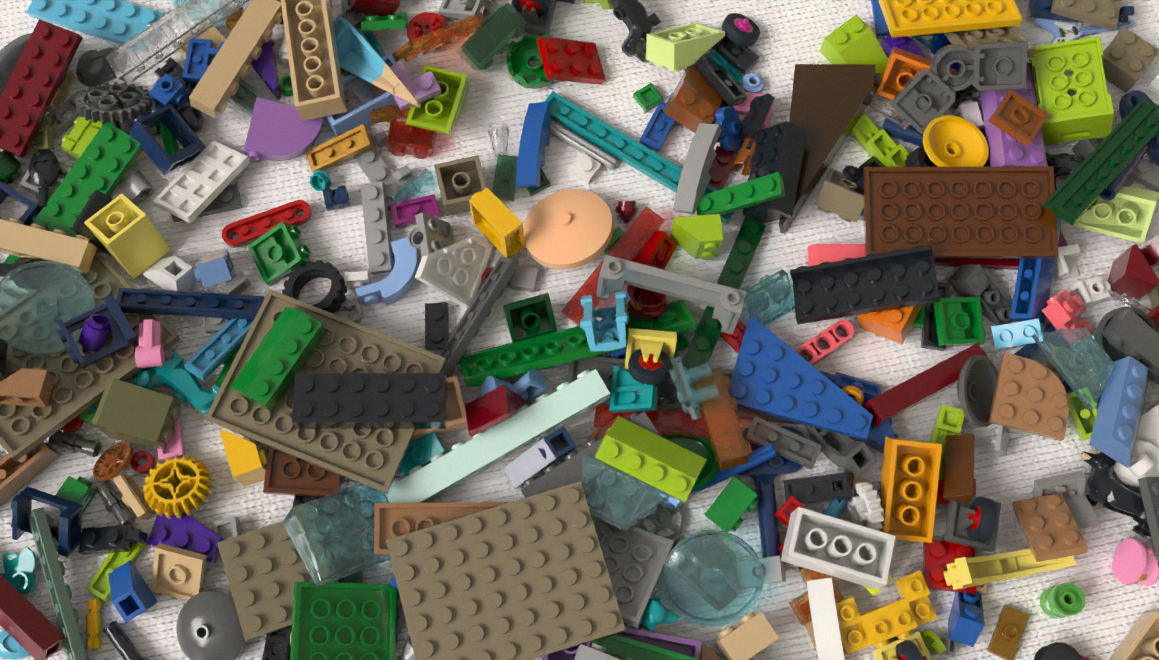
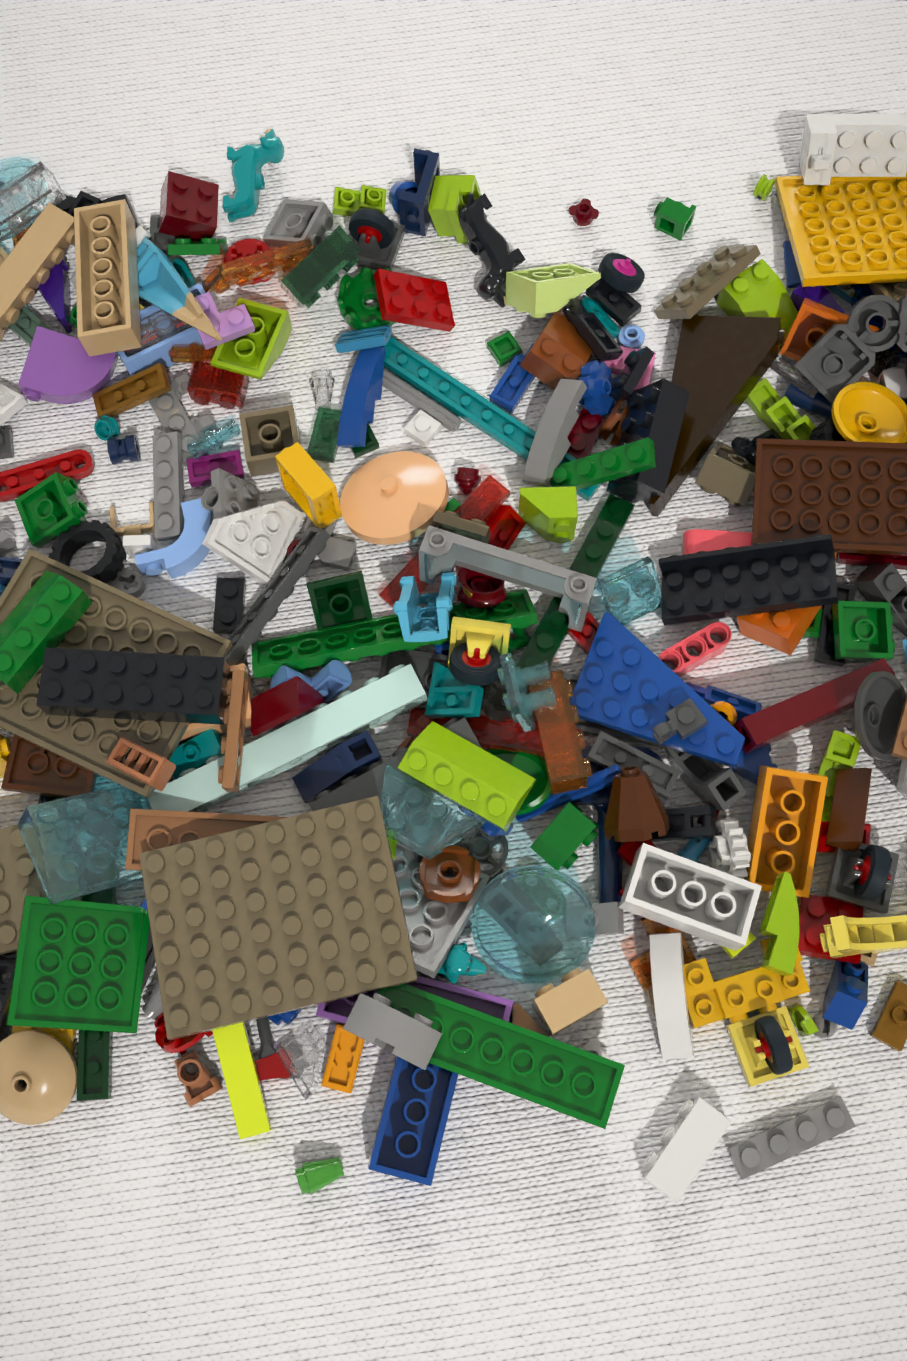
camera: 10 degrees right, 0 degrees up
(350, 266) = (137, 529): none -> tan piece
(395, 470) = (158, 771): none -> nougat slope
(454, 444) = (235, 718): none -> medium nougat plate
(531, 94) = (363, 338): none -> dark azure tile
(619, 248) = (452, 522): none -> dark tan plate
(642, 554) = (450, 889): none -> dark orange plate
(788, 478) = (634, 808): none -> reddish brown cone
(811, 35) = (706, 282): none -> dark tan plate
(821, 404) = (681, 720): none -> dark grey plate
(913, 567) = (782, 927): none -> lime slope

